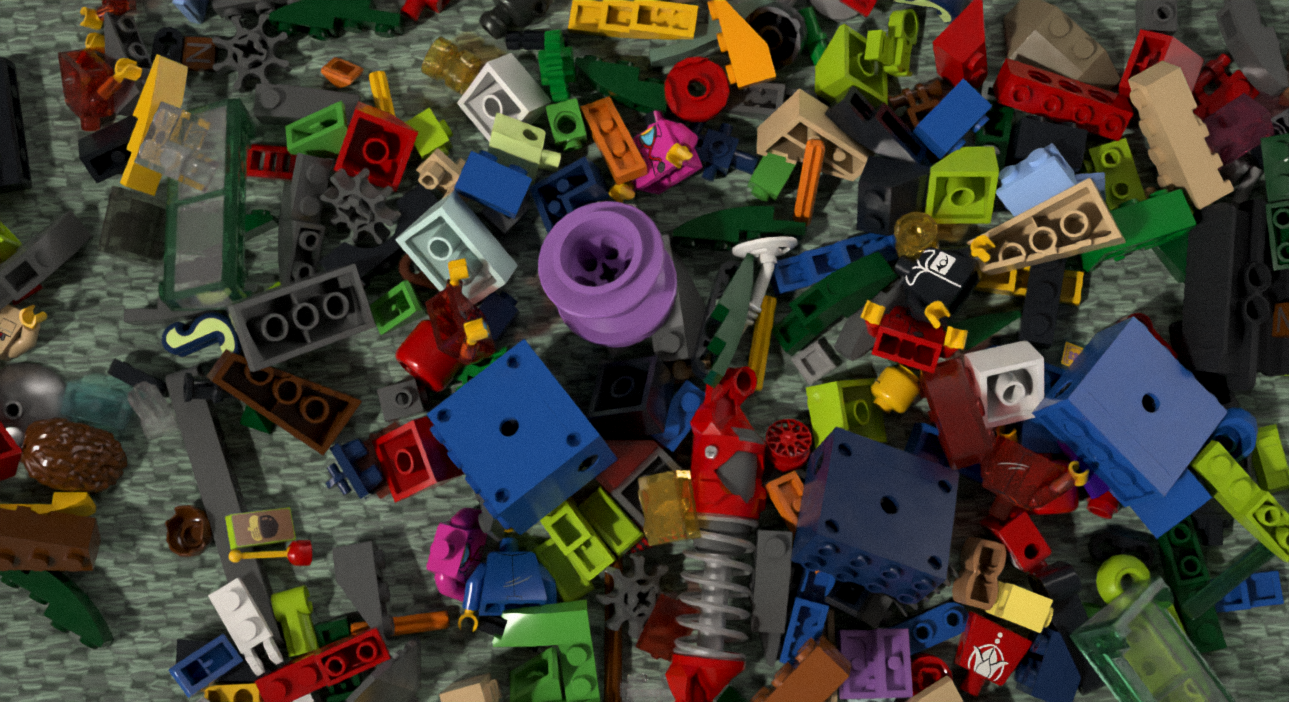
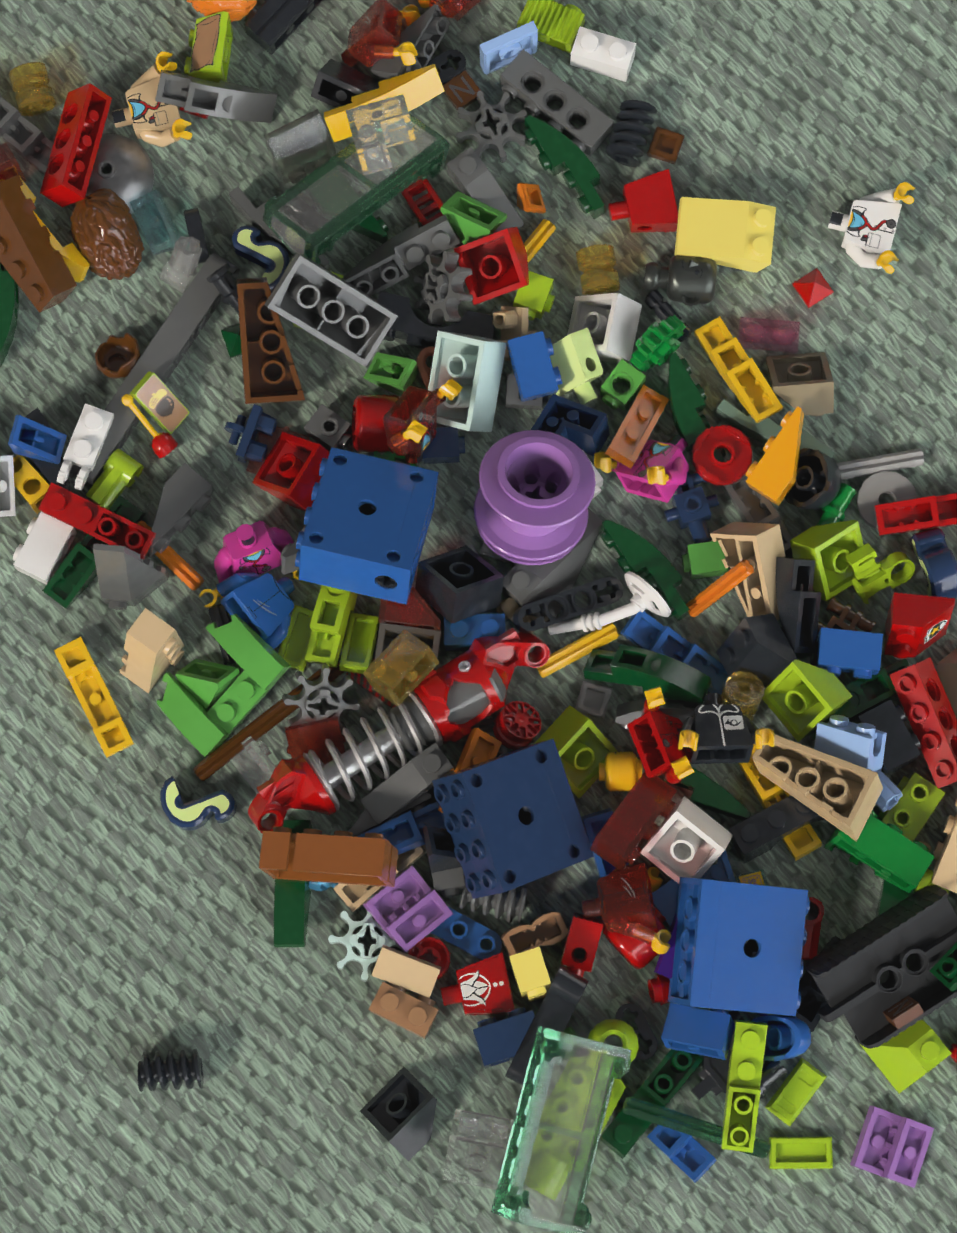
camera: 55 degrees right, 5 degrees down
(732, 313) = (576, 604): dark green slope -> none

